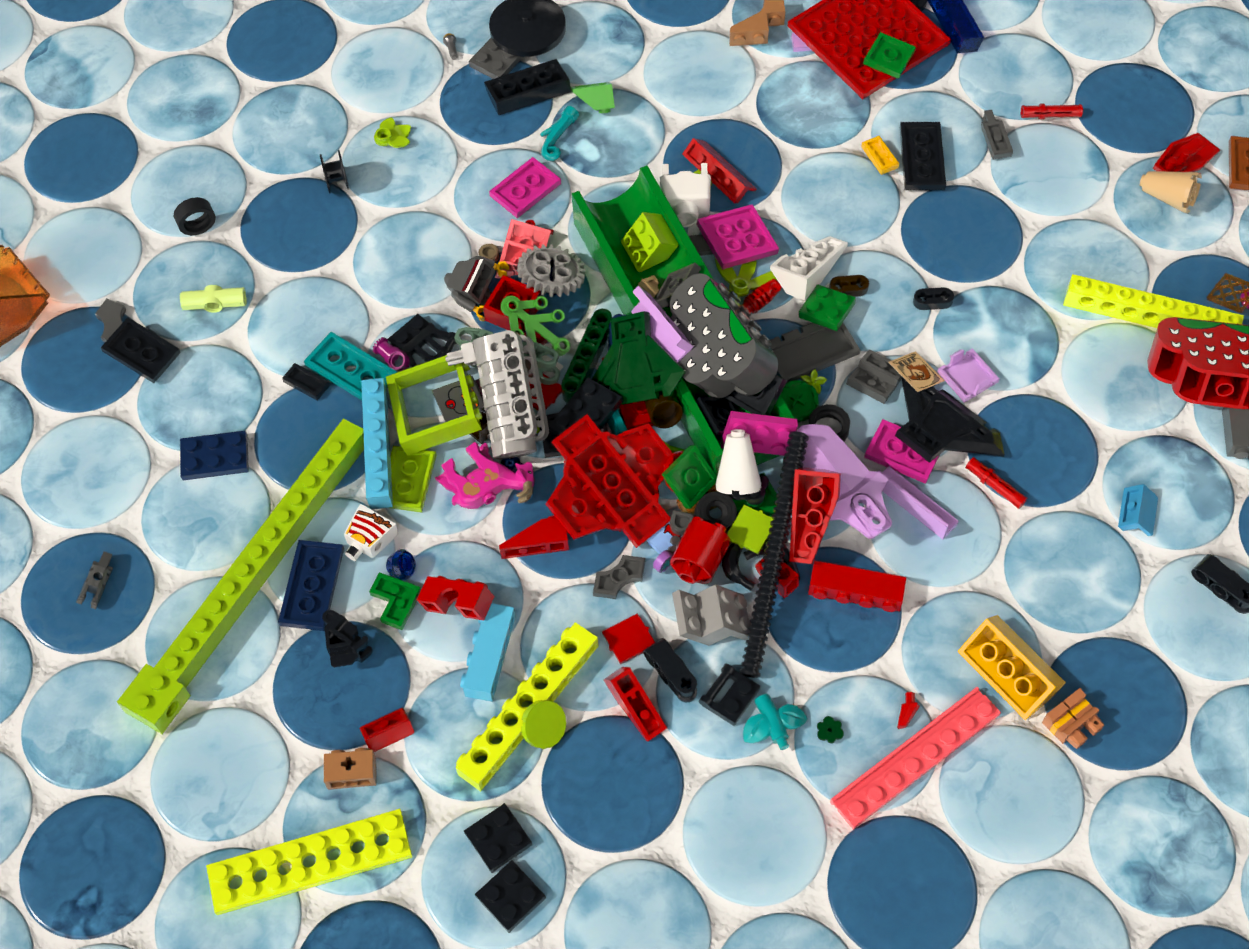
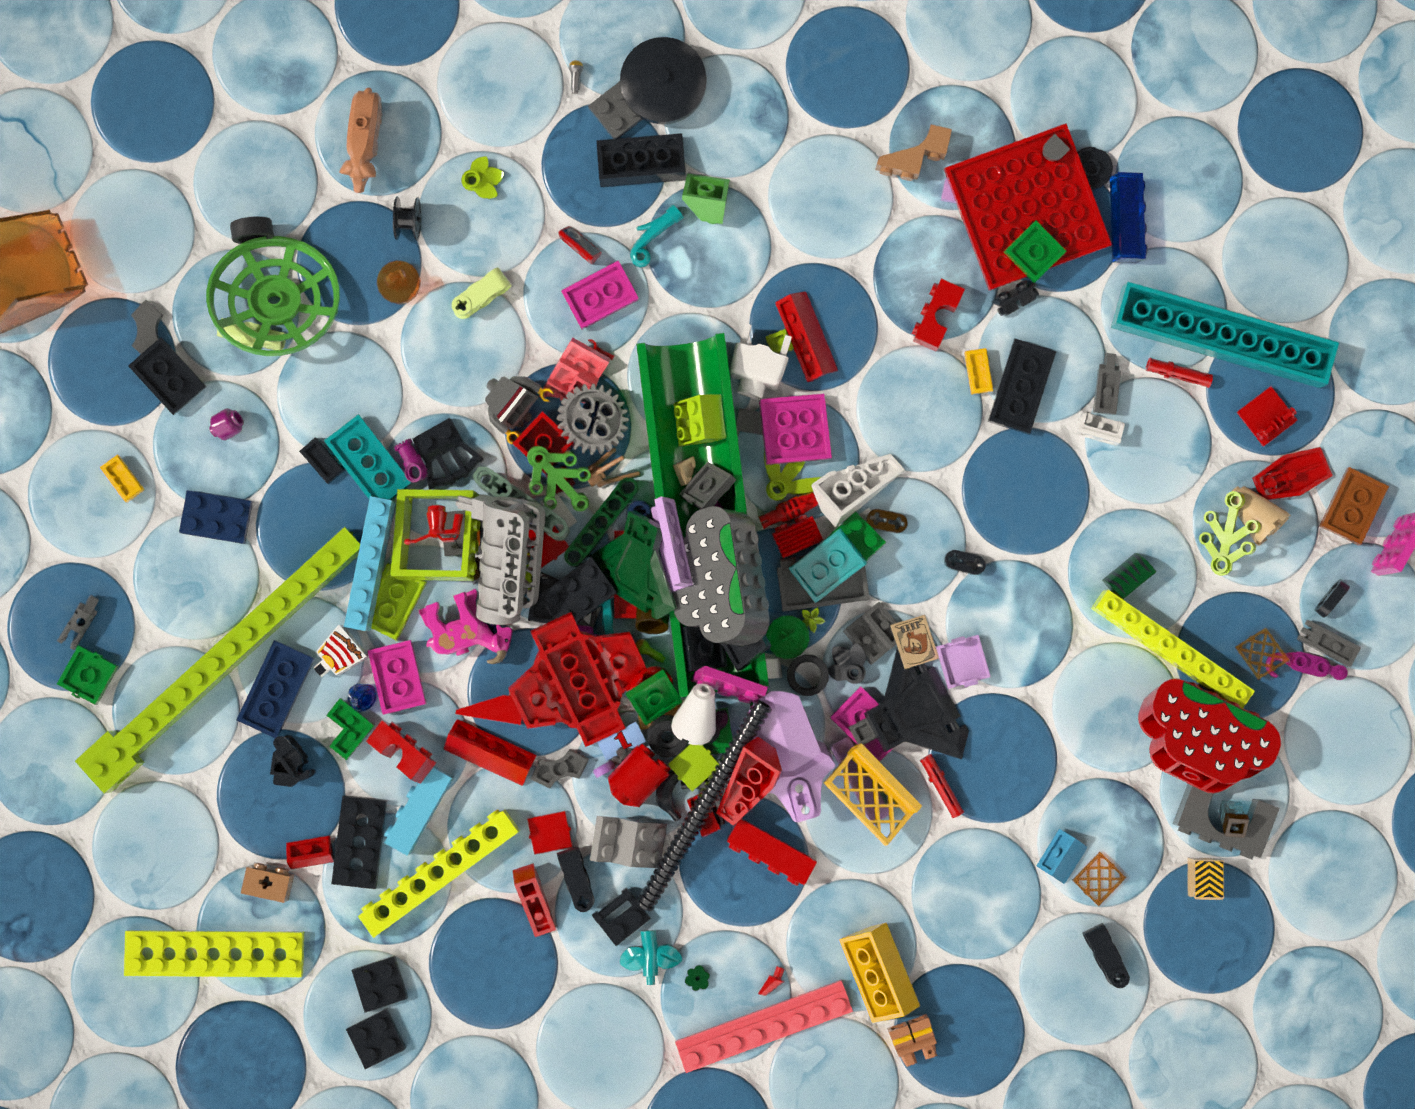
camera: 15 degrees right, 25 degrees up
(114, 446) = (122, 478): none -> yellow plate
(114, 626) = (87, 675): none -> green plate
(206, 373) = (226, 424): none -> magenta head
(216, 262) = (271, 286): none -> bright green dish
(278, 124) = (362, 137): none -> nougat animal
(339, 226) = (398, 282): none -> clear orange tile
(416, 214) = (481, 293): none -> yellowish green piece
(431, 380) = (437, 519): none -> red piece
(431, 540) = (397, 677): none -> dark pink plate
(450, 712) = (346, 851): none -> black plate
(489, 251) = (540, 364): dark tan tile -> none
(493, 158) = (579, 244): none -> slope
(543, 582) = (489, 752): none -> red panel
(543, 724) = (446, 898): lime tile -> none
(571, 319) = (597, 472): none -> medium nougat plant
(680, 521) = (632, 735): dark grey tile -> none
(775, 316) = (797, 536): none -> red brick
(810, 327) = (828, 565): none -> teal tile
(826, 136) = (945, 296): none -> red arch
(861, 405) = (845, 661): none -> black plate
(882, 101) = (1007, 300): none -> black hinge
(901, 454) = (862, 732): none -> dark grey tile
(938, 490) = (880, 778): none -> yellow fence
(1004, 169) = (1099, 428): none -> white hinge
(1076, 72) = (1225, 335): none -> teal brick
(1087, 263) = (1129, 575): none -> dark green brick
(1142, 122) = (1267, 416): none -> red hinge
(1156, 209) = (1228, 536): none -> plant
(1177, 536) = (1110, 889): none -> clear orange window

